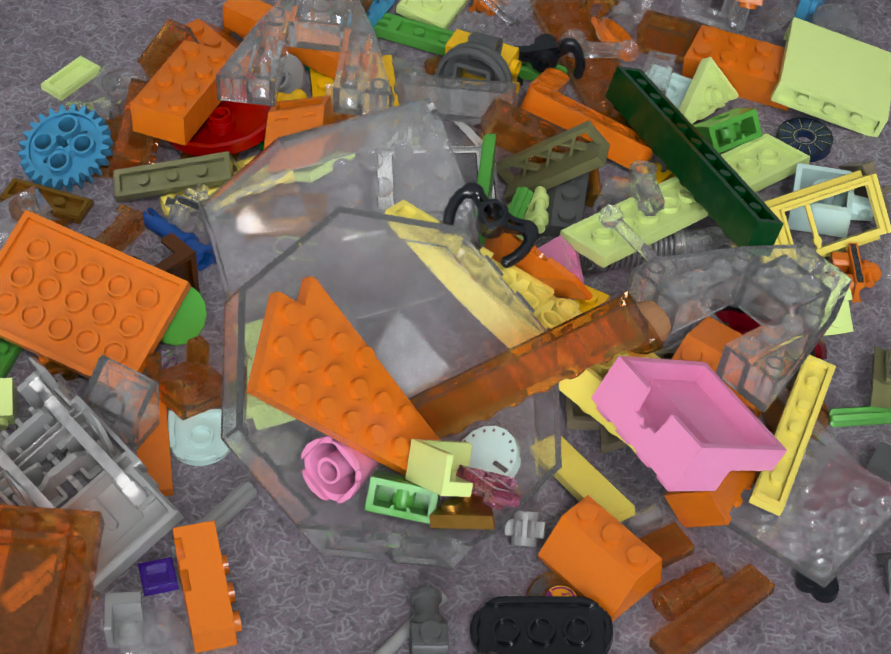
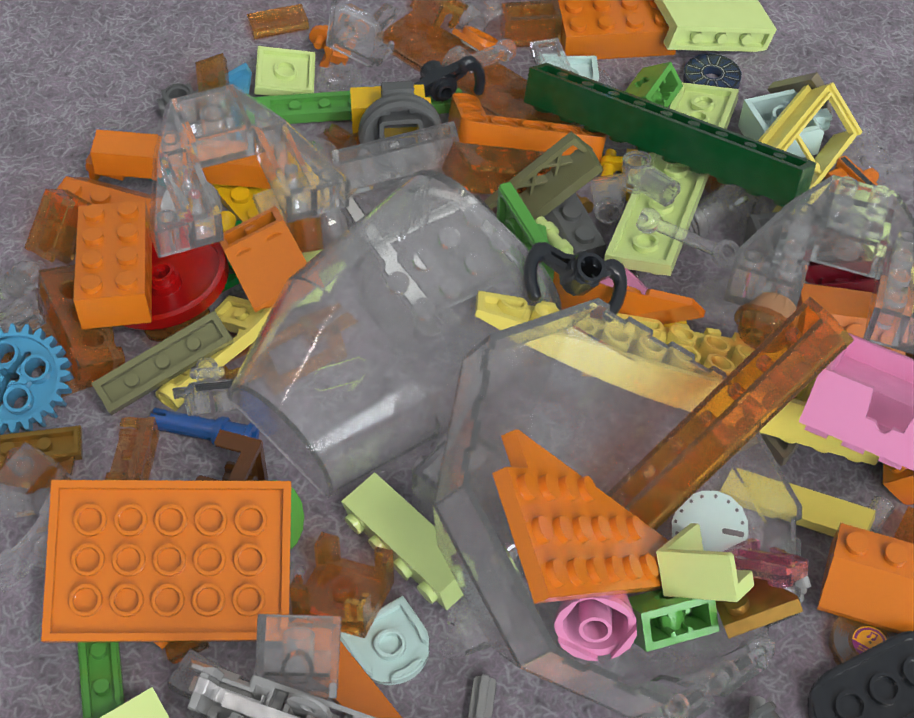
camera: 30 degrees left, 5 degrees up
(706, 92) = (607, 59): yellowish green wing -> none

